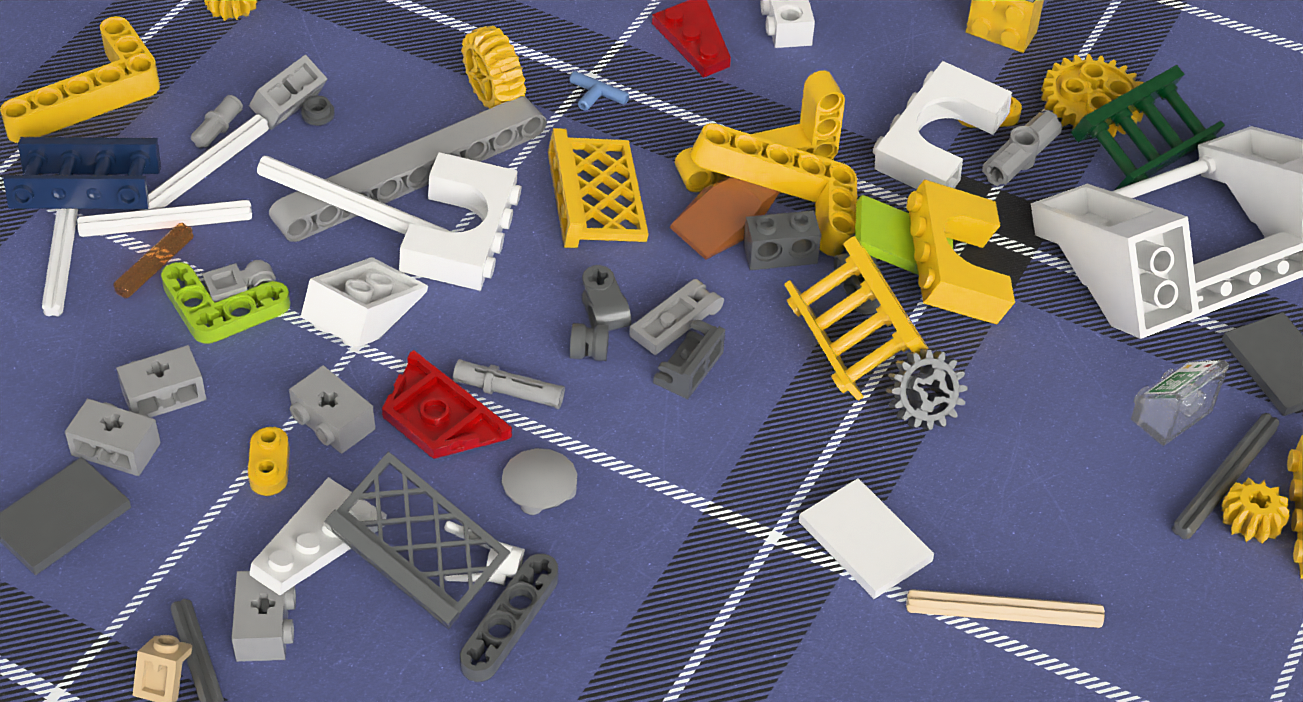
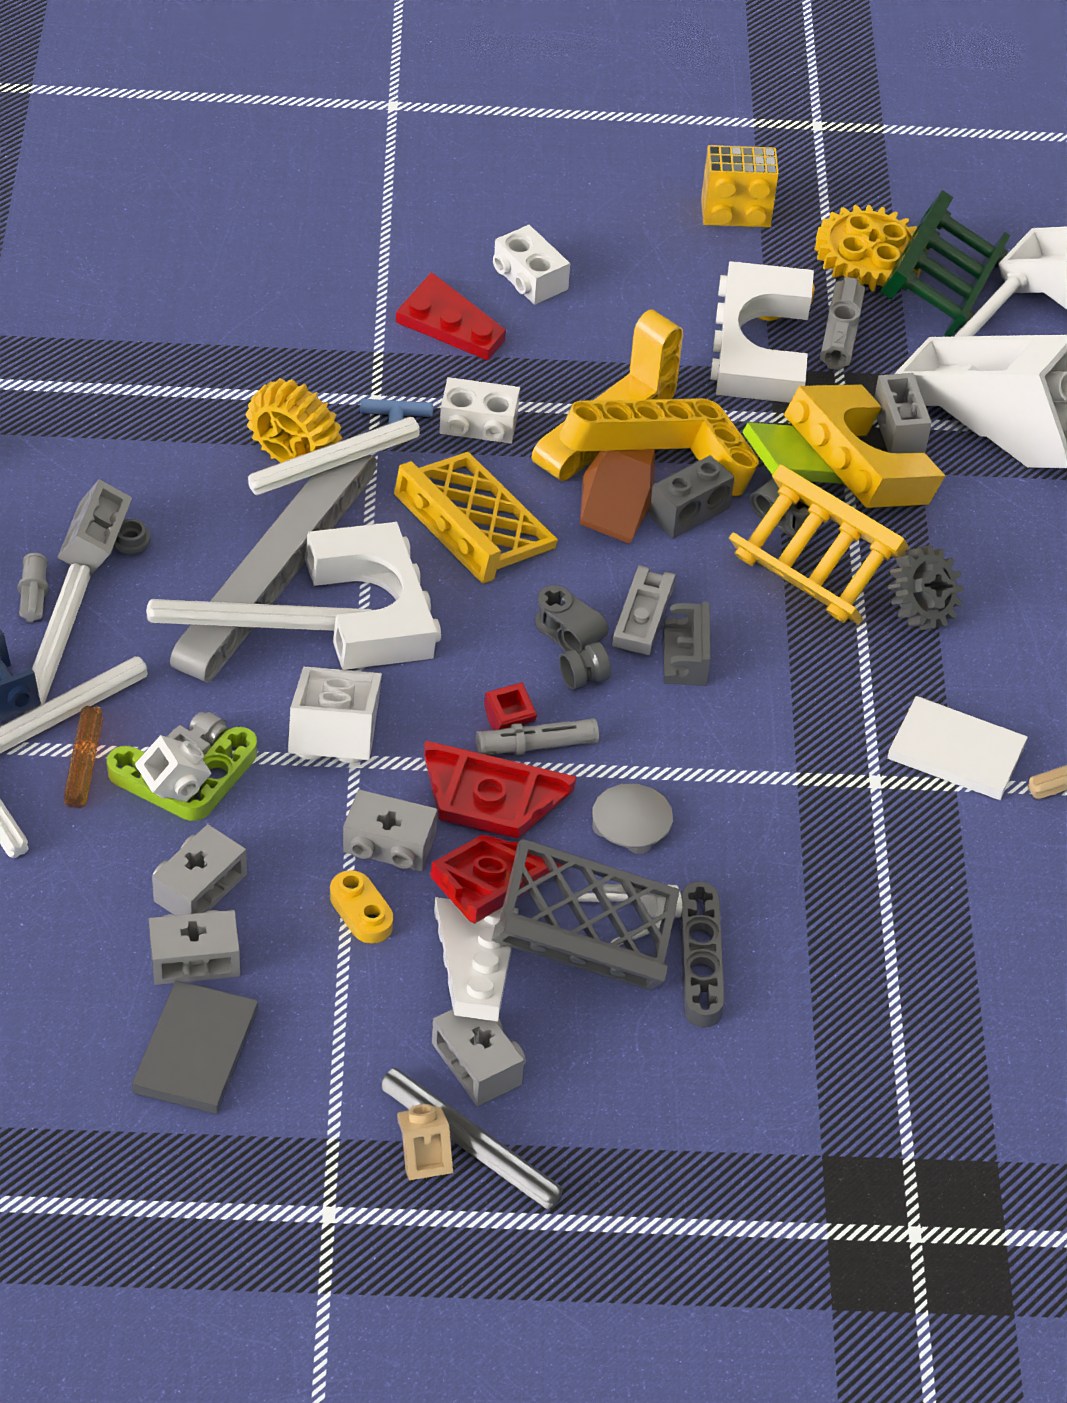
camera: 30 degrees left, 0 degrees up
(191, 291) = (173, 768): none -> white brick
(352, 463) = (479, 875): none -> red wing
(503, 350) = (509, 706): none -> red brick
(505, 102) = (333, 456): none -> white axle
(659, 111) = (479, 410): none -> white brick
(1015, 238) = (903, 414): none -> light grey brick

